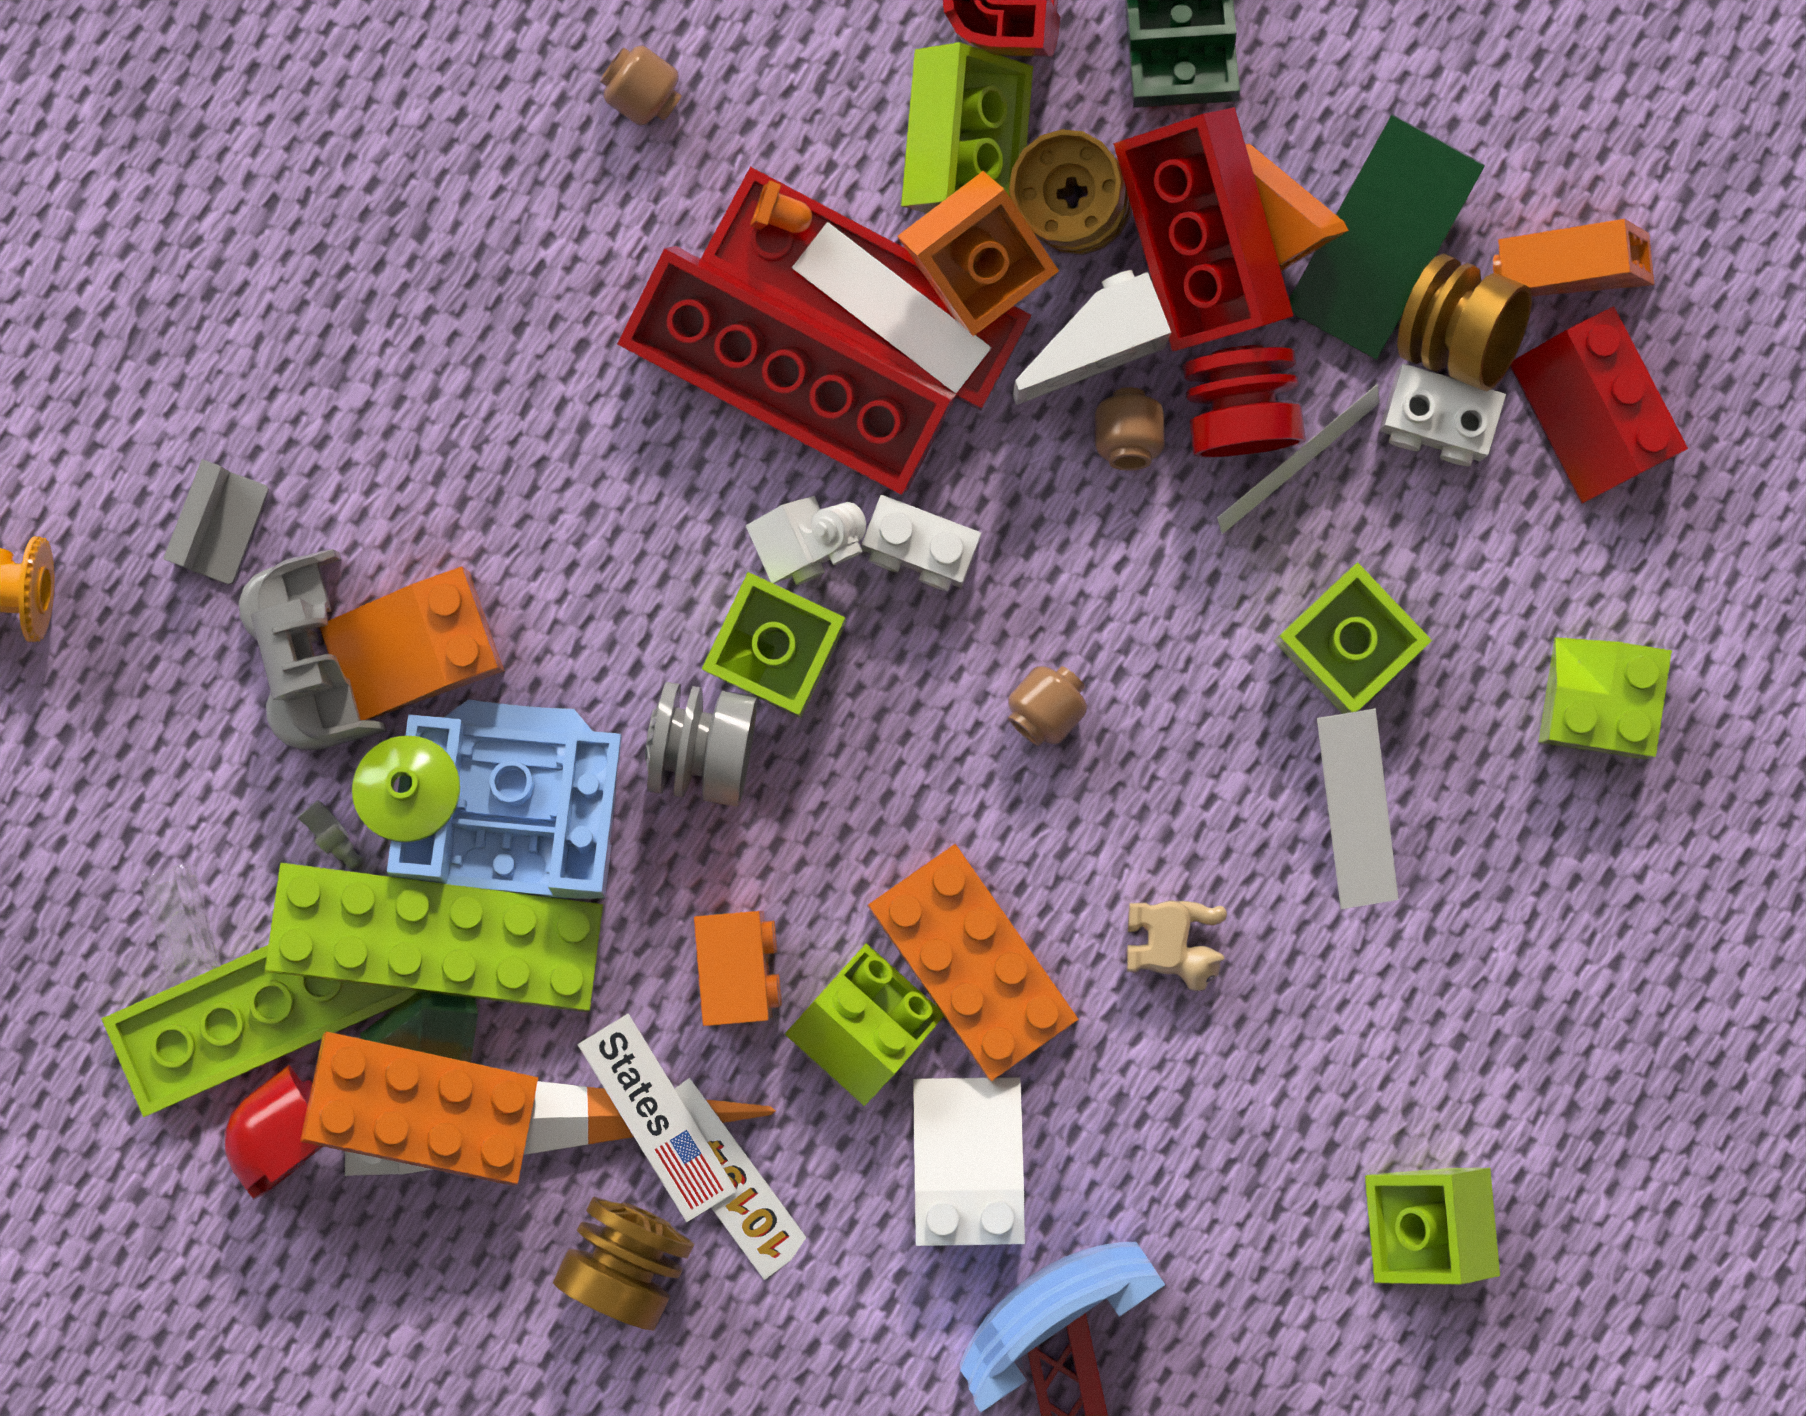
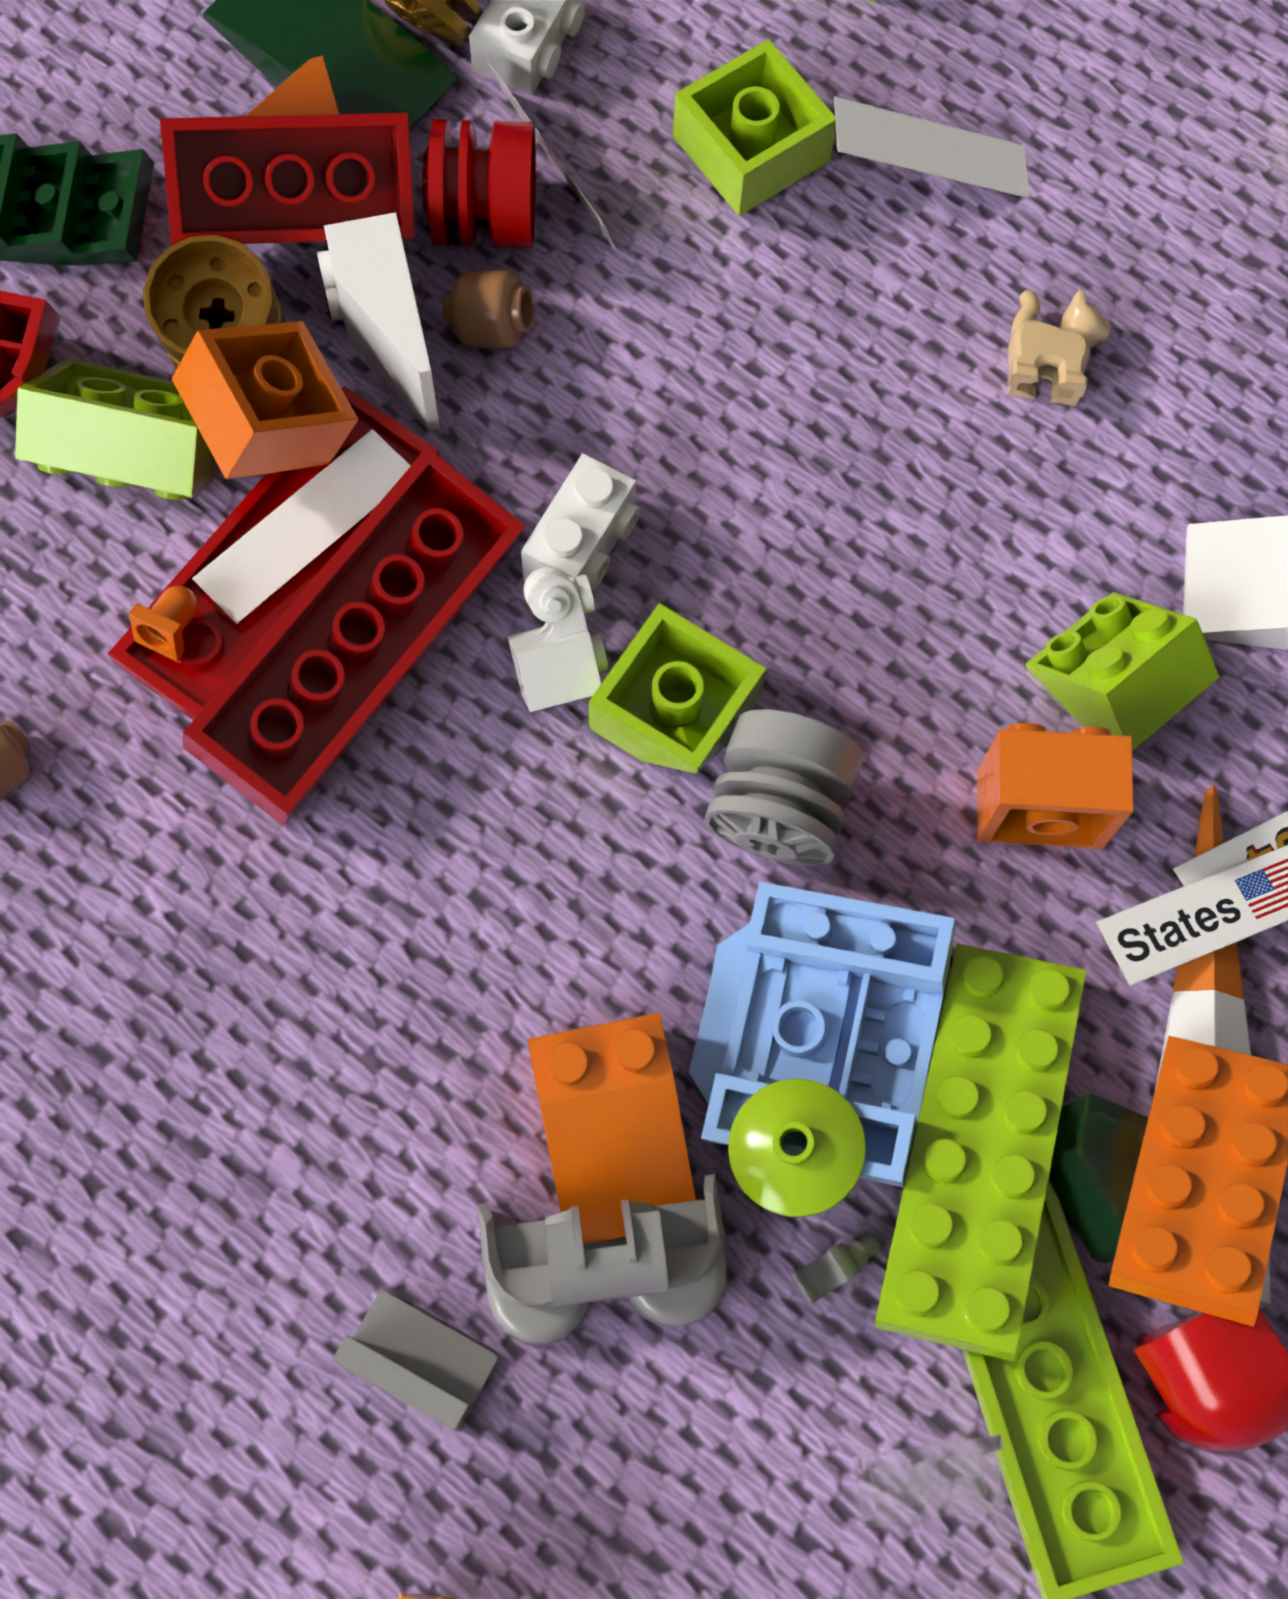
camera: 90 degrees left, 15 degrees down
(972, 962) = (1058, 552): orange plate -> none
(1047, 705) = (782, 429): medium nougat head -> none

